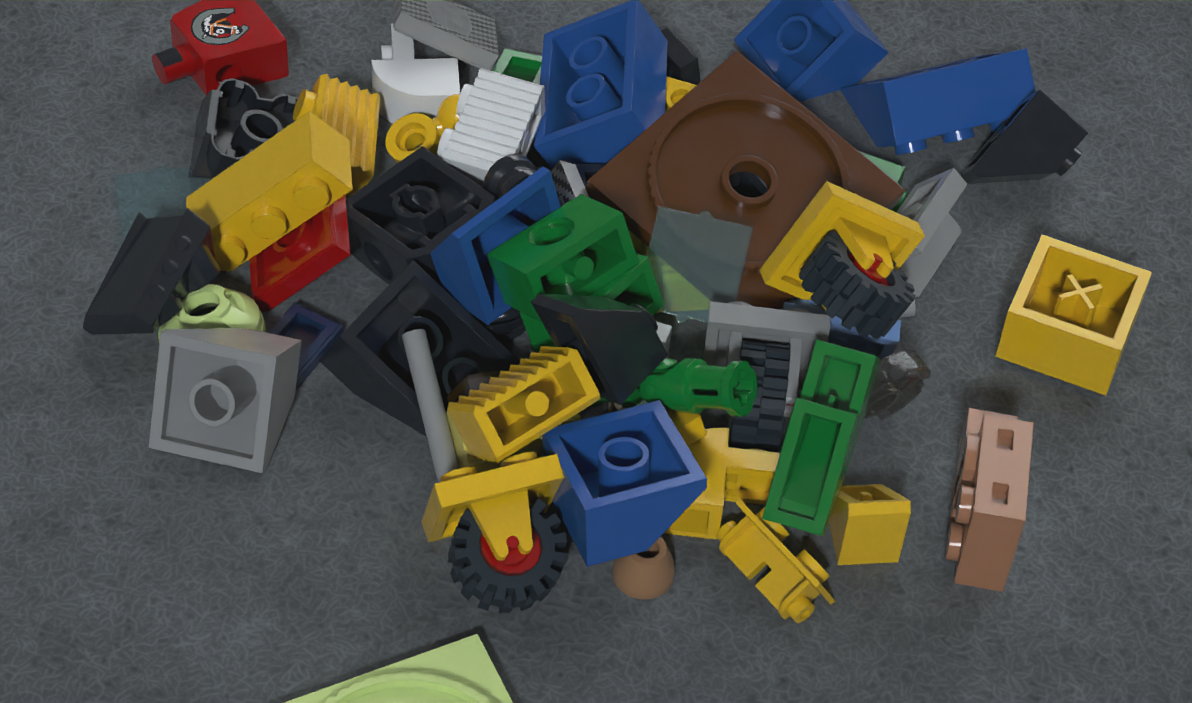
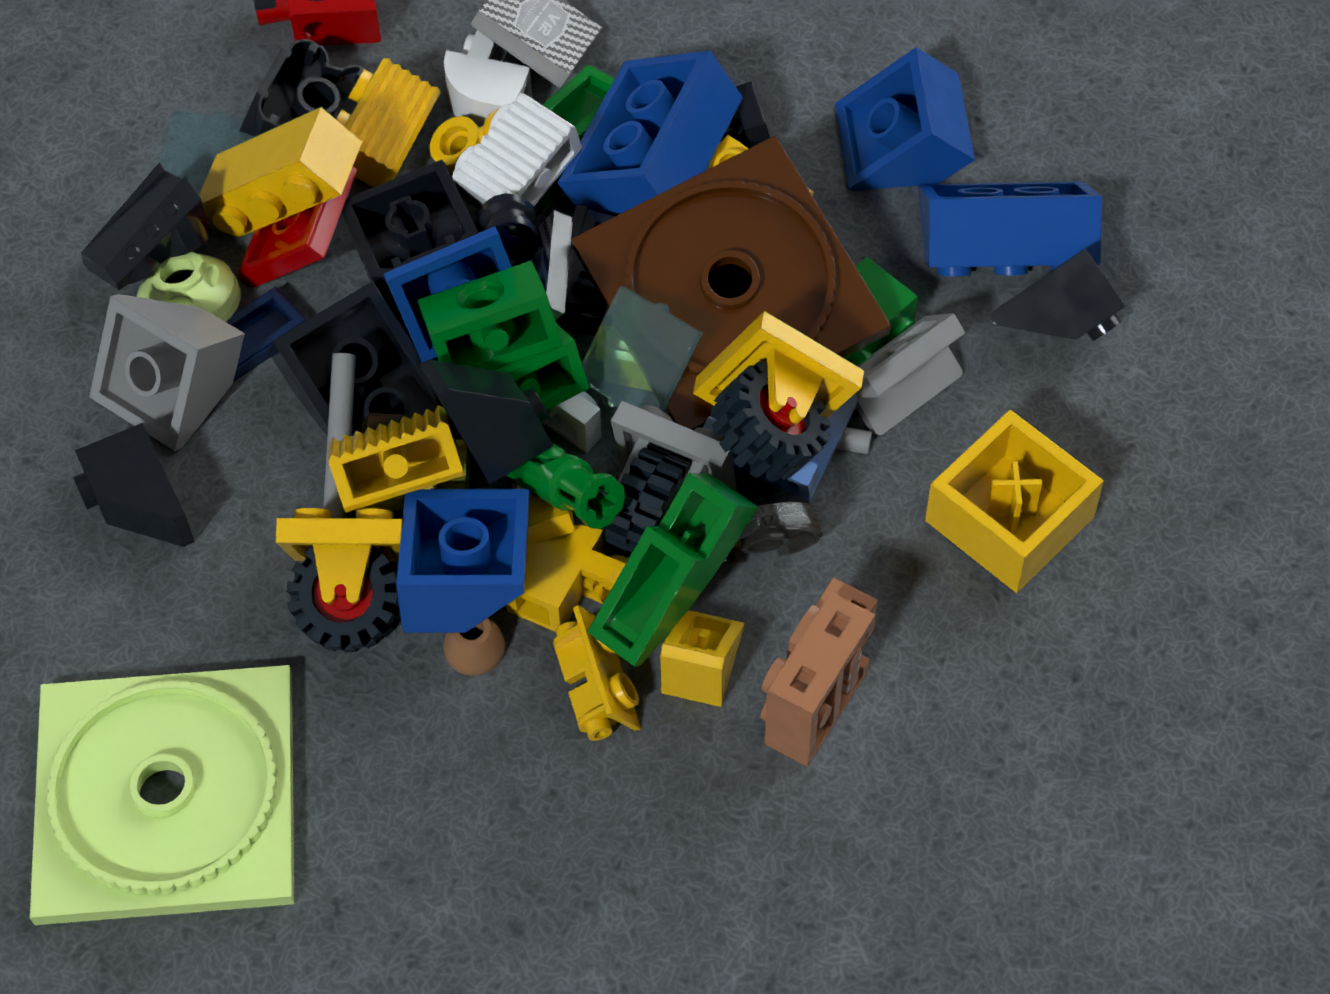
camera: 25 degrees right, 10 degrees up
(244, 513) = (131, 487): none -> black slope

